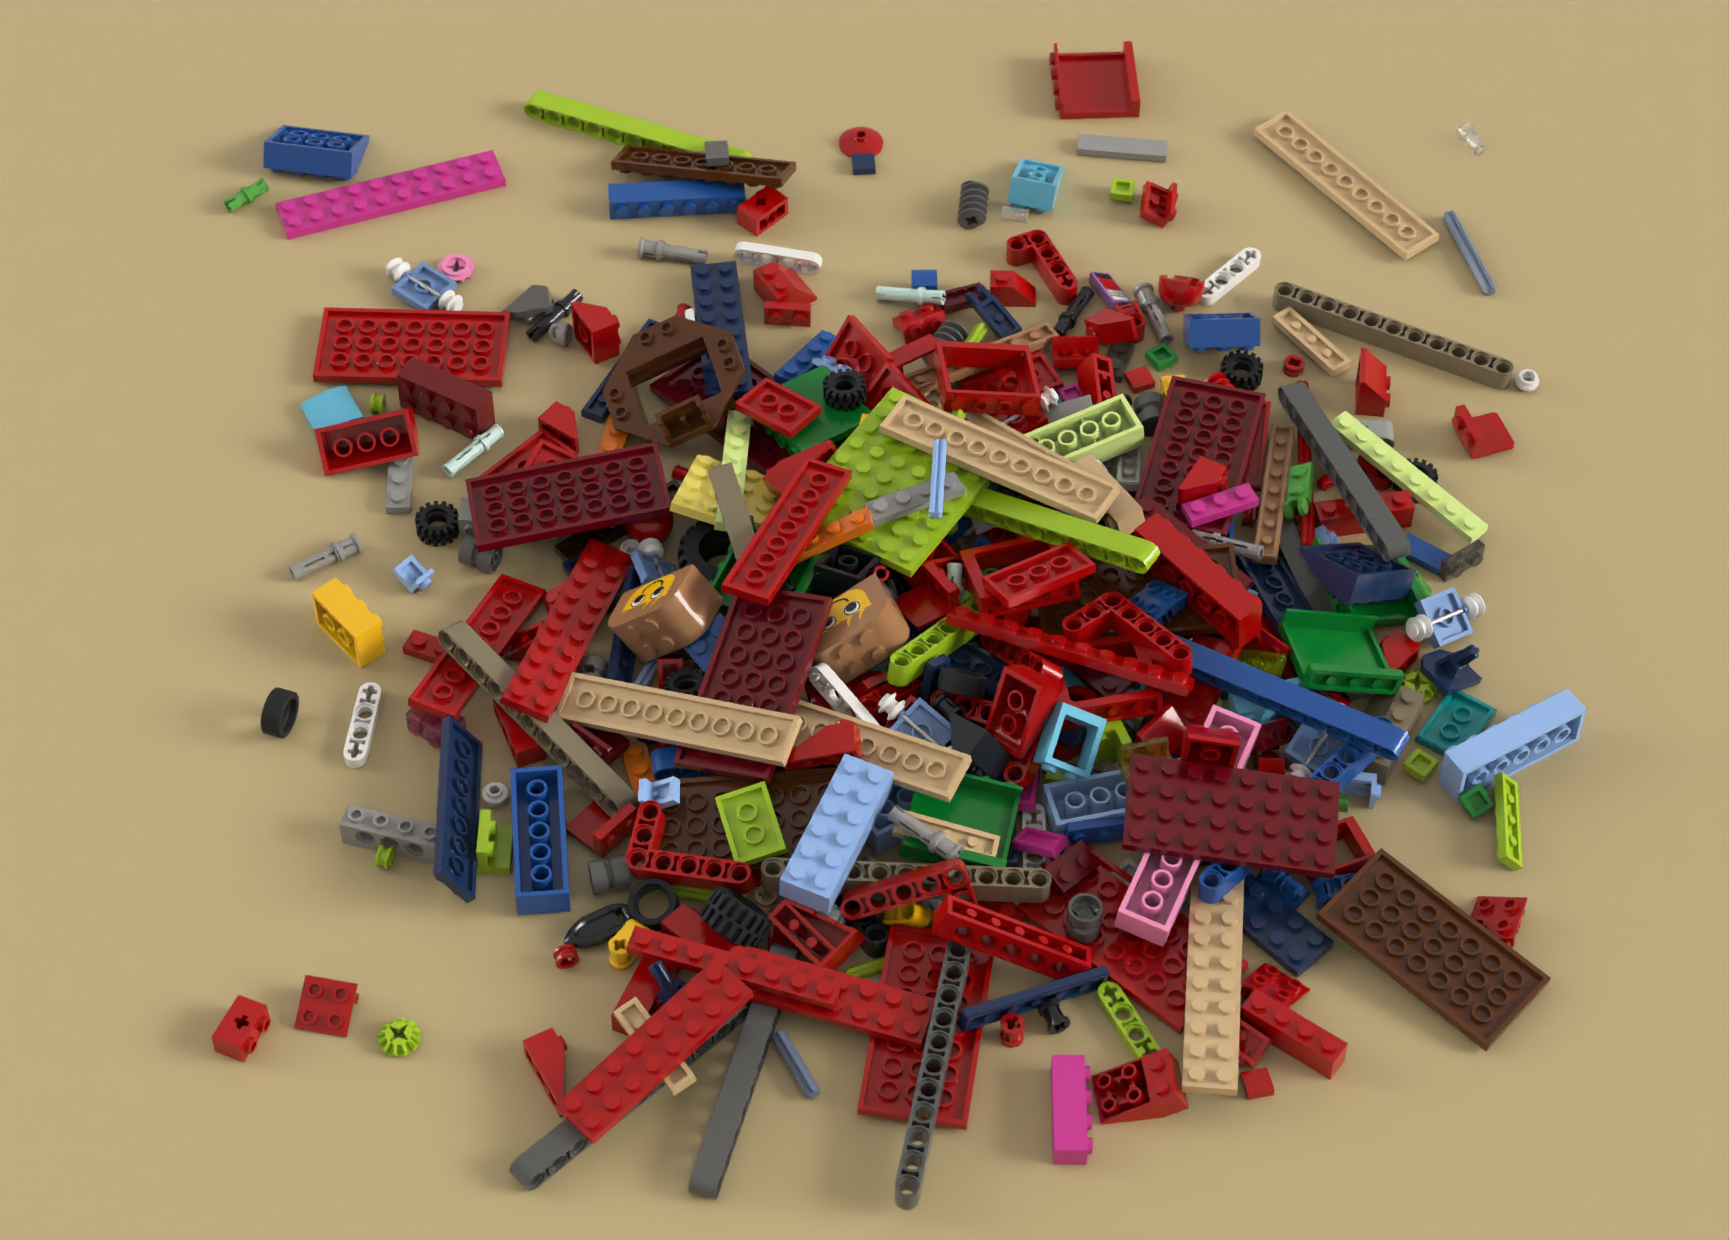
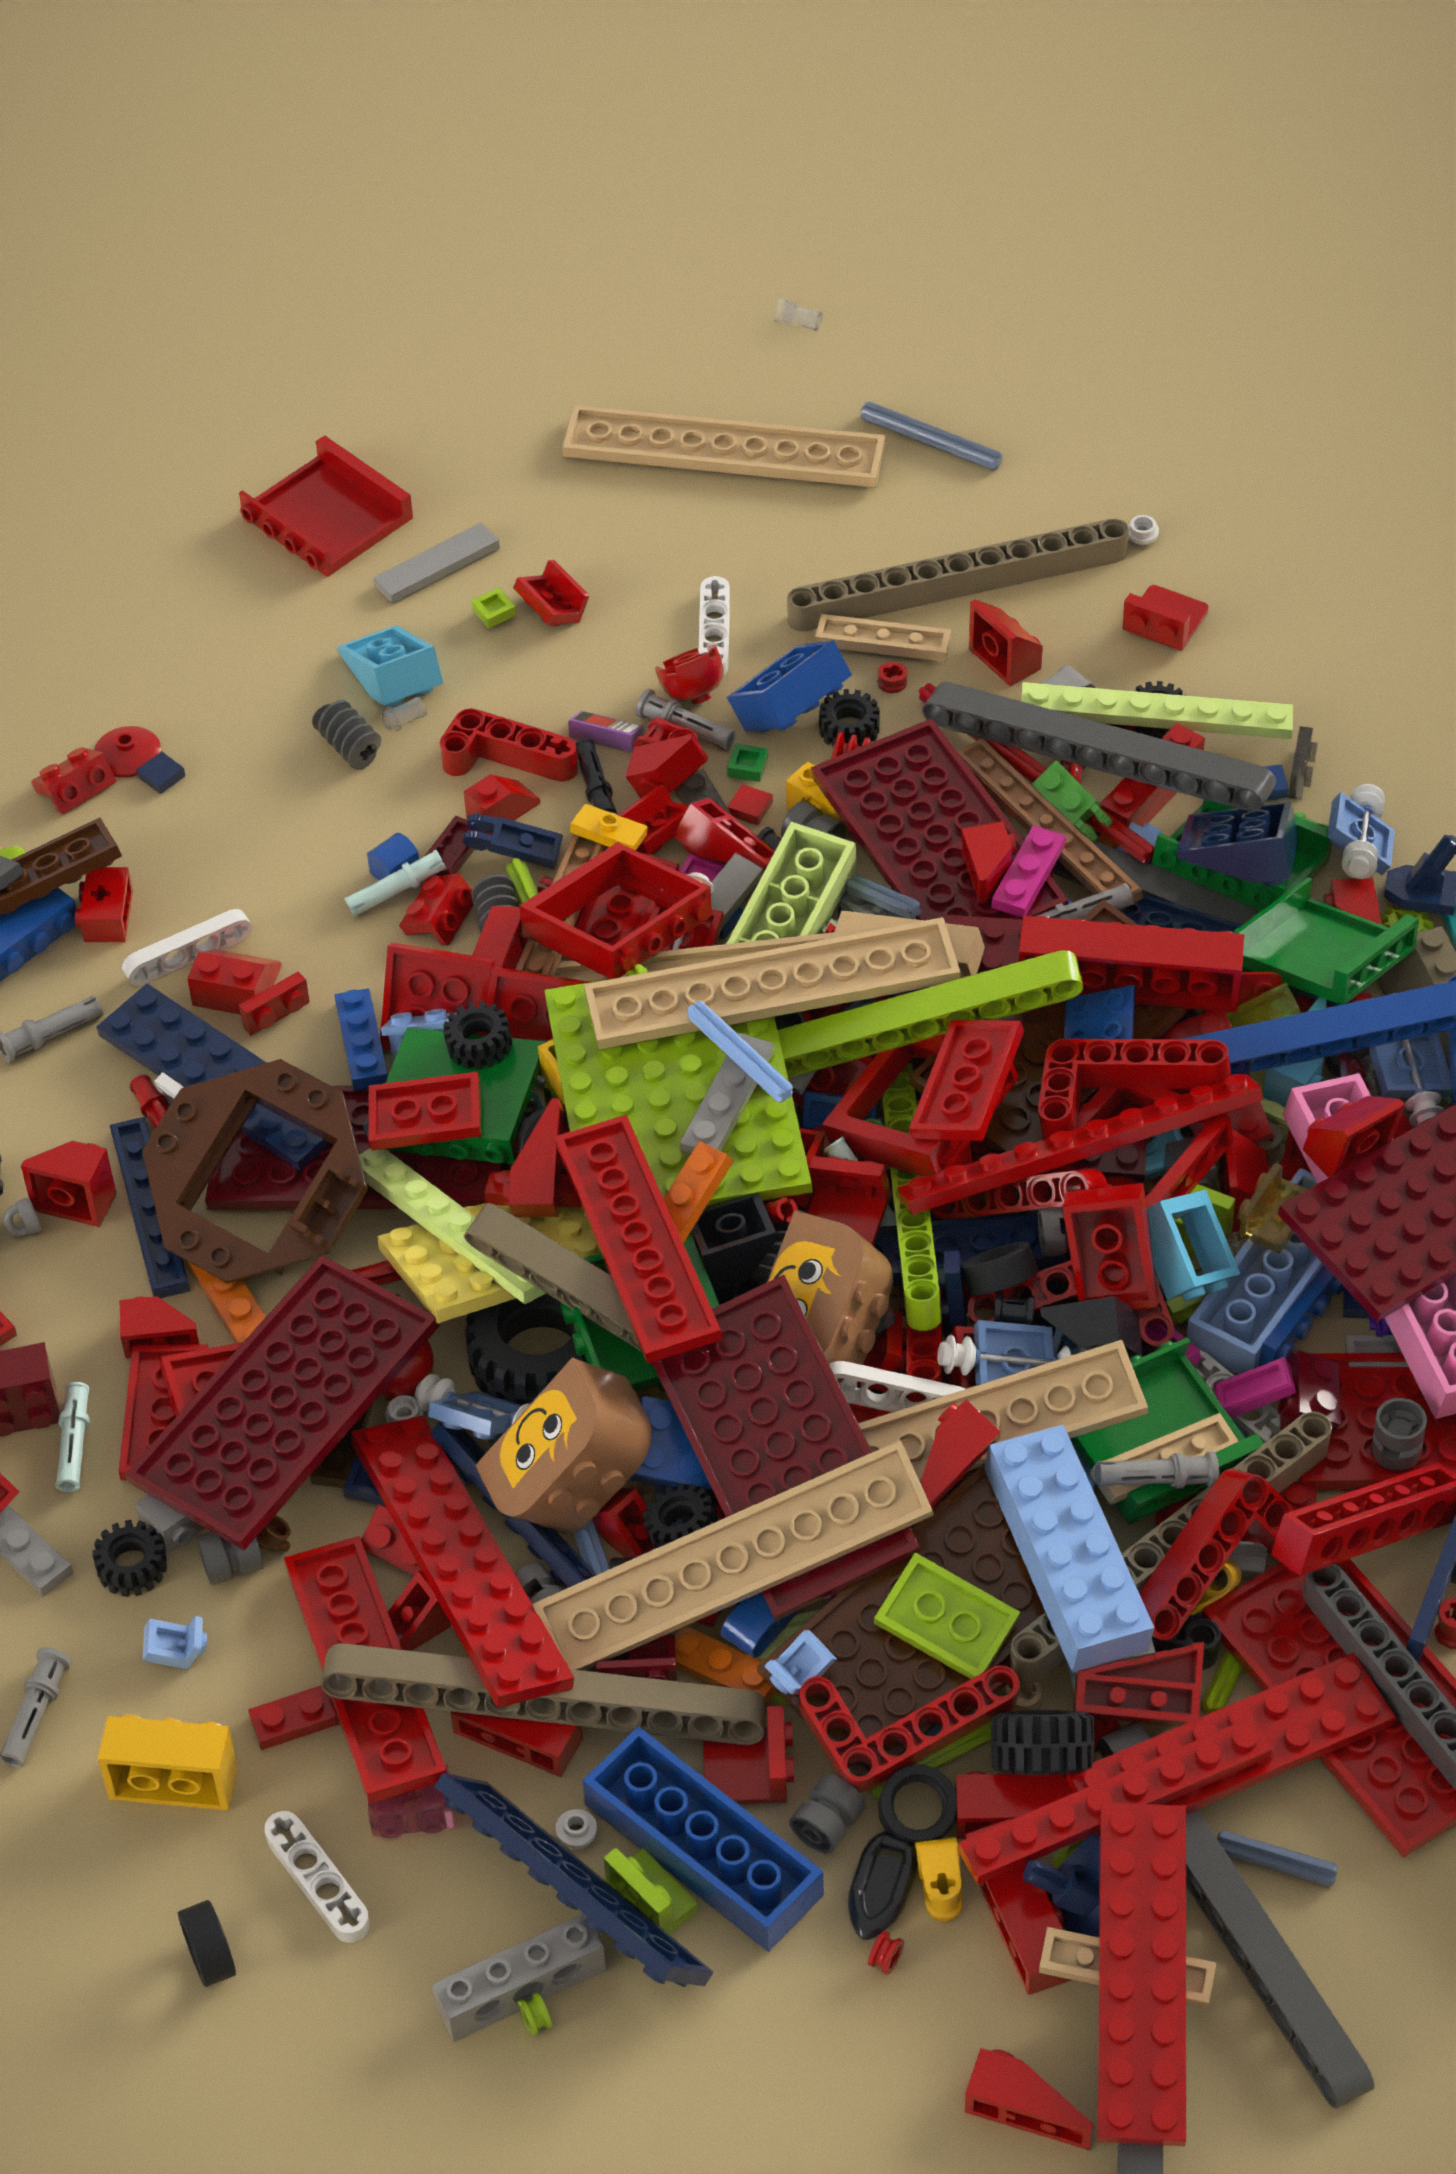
camera: 40 degrees left, 0 degrees up
(513, 555) = (275, 1535): none -> reddish brown plate
(817, 139) = (74, 779): none -> red bracket
(1041, 339) = (607, 828): none -> yellow plate
(1133, 467) = (883, 897): none -> sand blue axle

